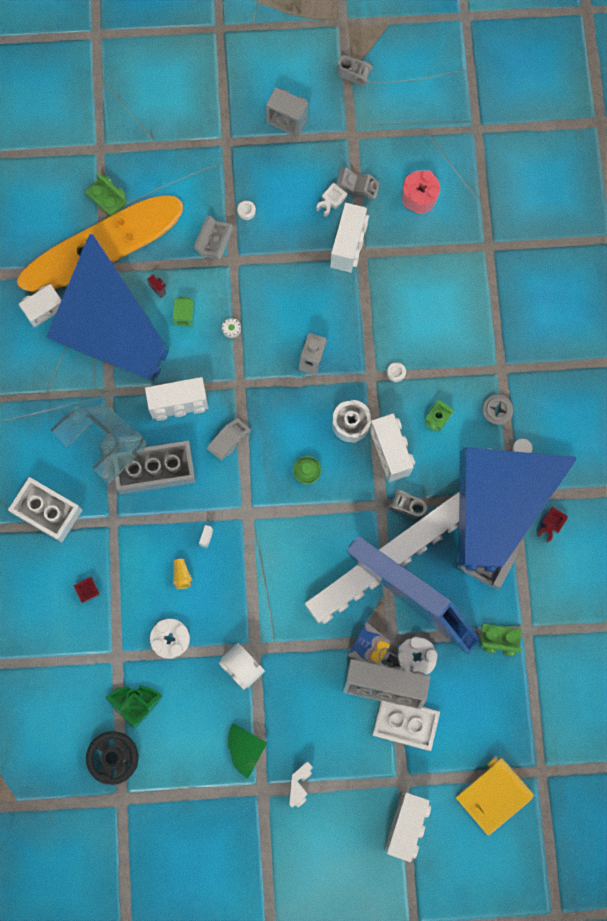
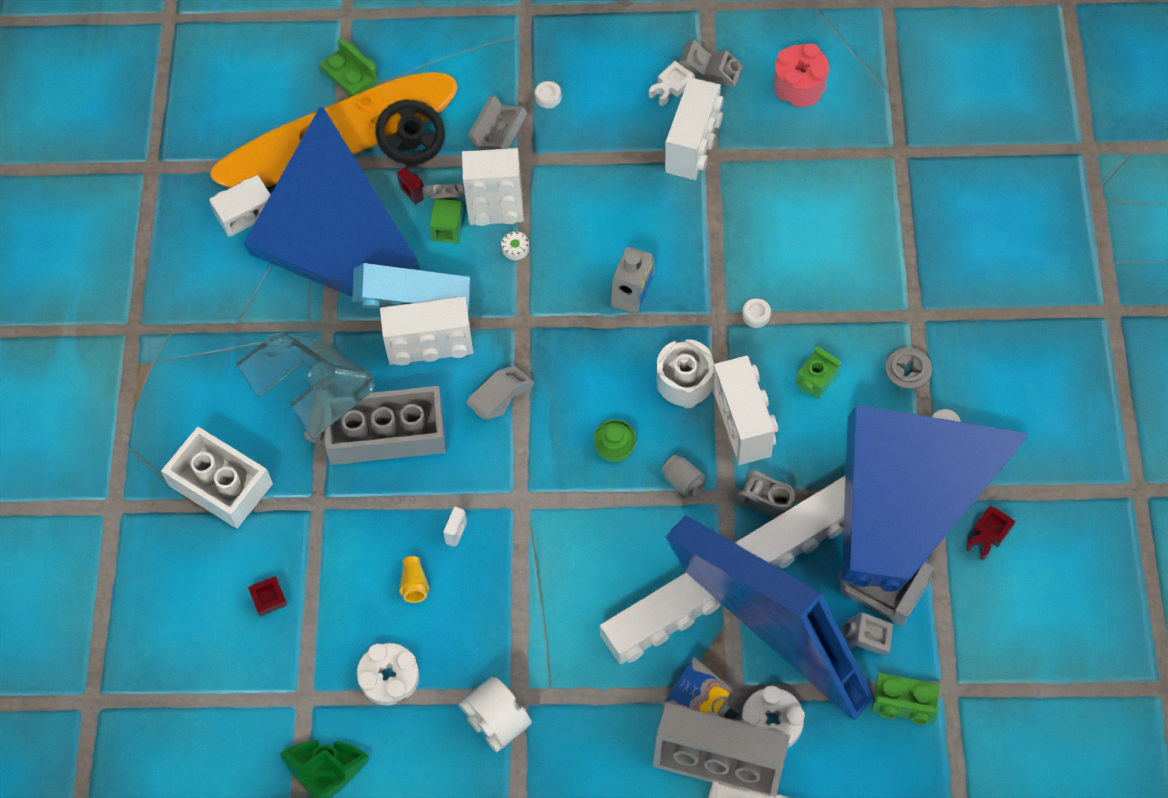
camera: 10 degrees right, 15 degrees down
(140, 254) = (410, 121): none -> black wheel
(162, 370) = (399, 286): none -> medium azure brick
(181, 291) = (444, 191): none -> light grey gear
(214, 290) = (493, 186): none -> white brick
(353, 494) = (683, 476): none -> light grey brick
(475, 598) = (868, 633): none -> light grey bracket

